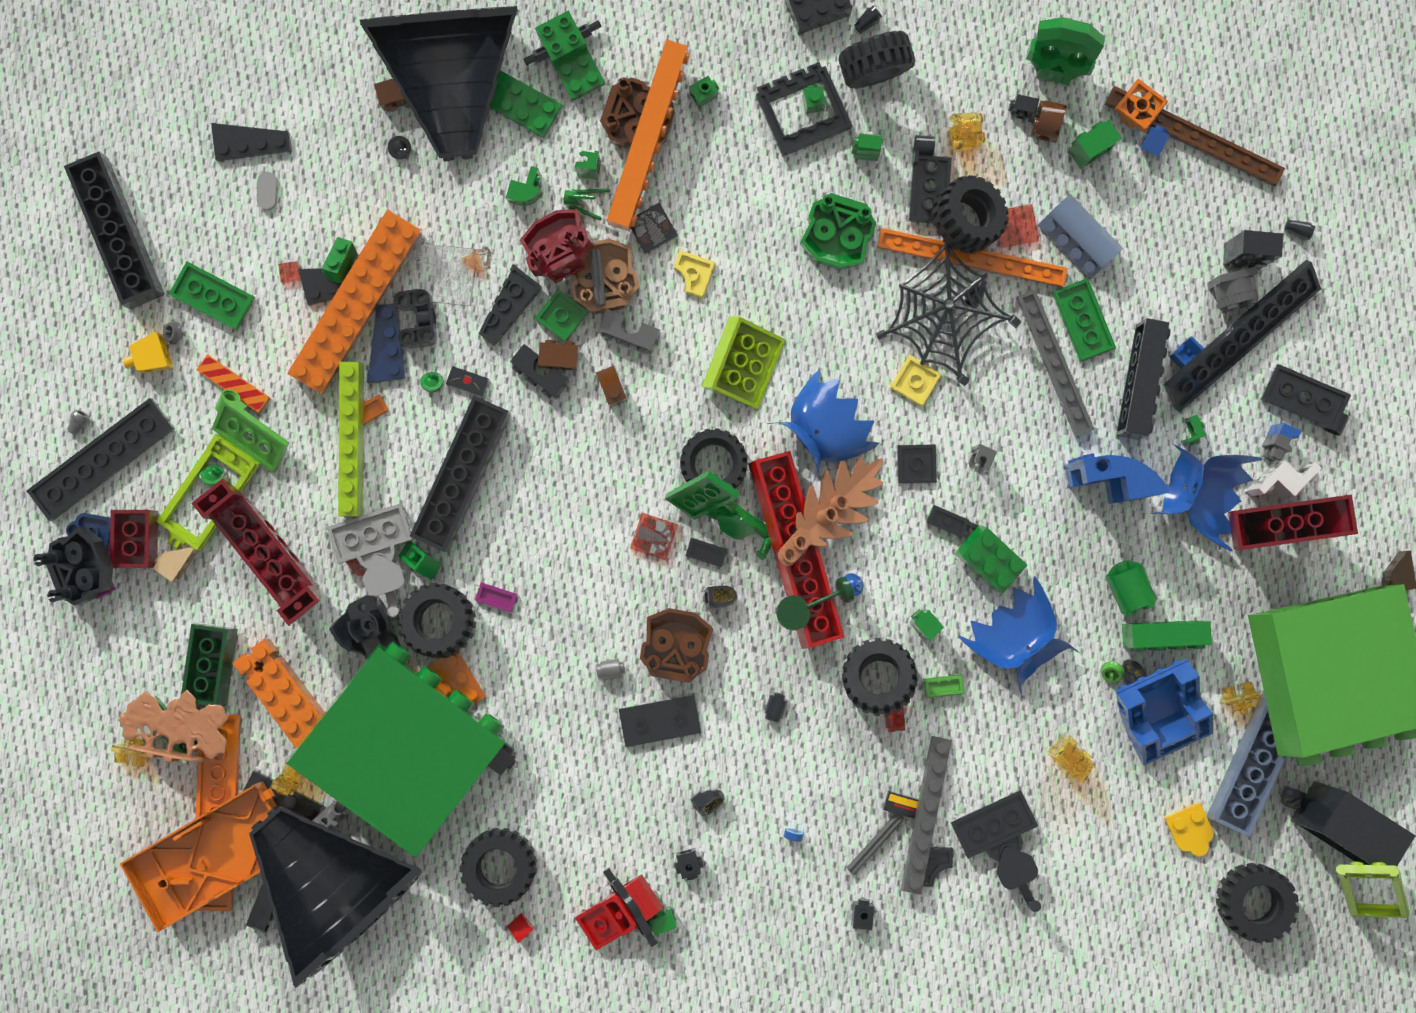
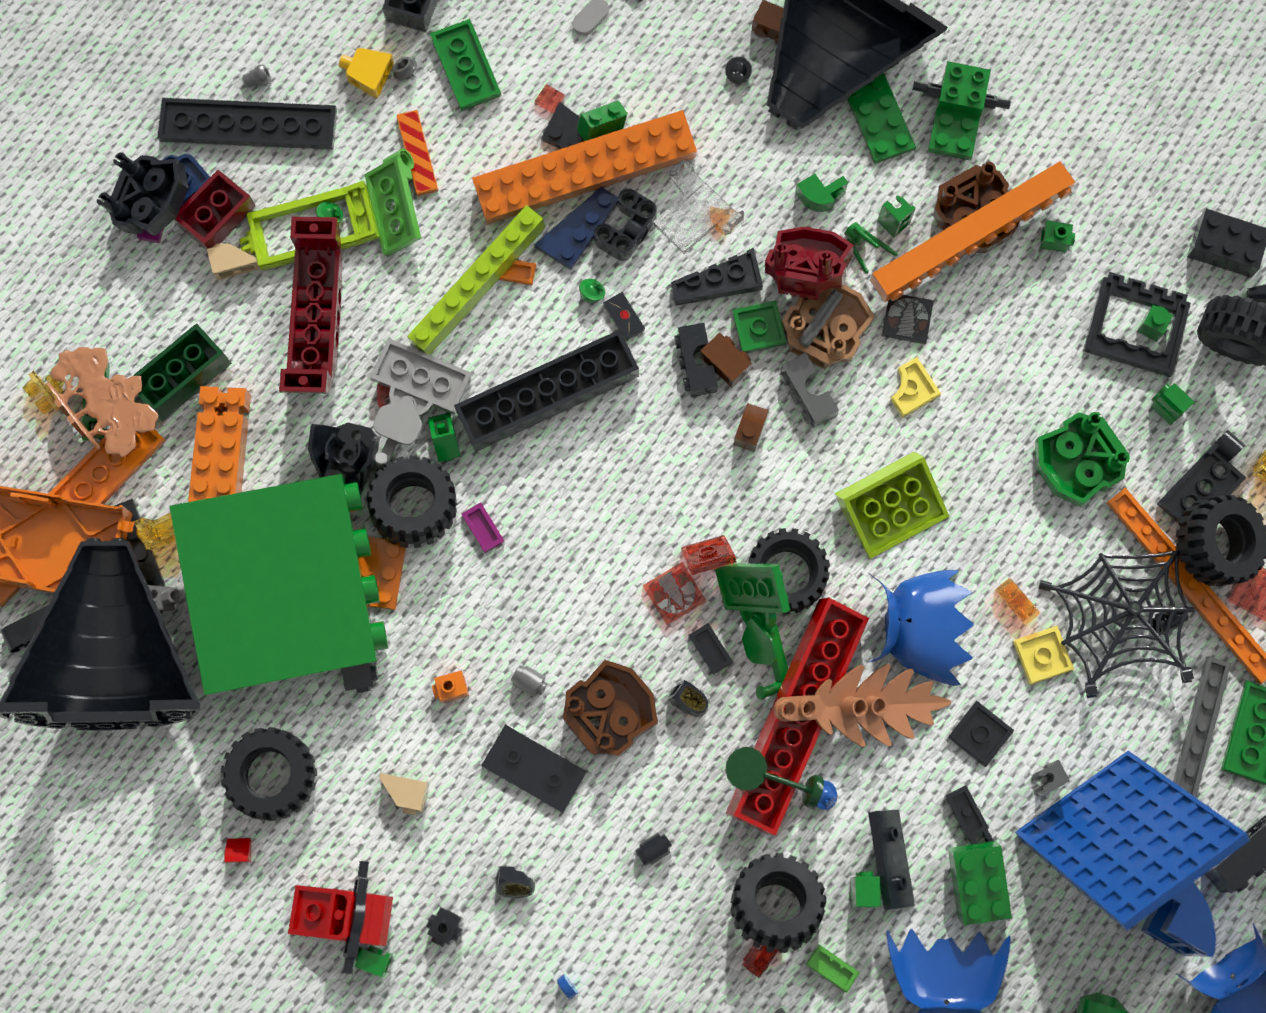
camera: 40 degrees right, 10 degrees down
(564, 715) = (450, 687): none -> orange brick
(593, 804) = (406, 792): none -> tan slope
(655, 494) = (708, 555): none -> clear red tile
(872, 360) = (1017, 601): none -> clear orange brick
(926, 590) = (891, 859): none -> black plate
(1064, 460) = (1131, 839): none -> blue plate

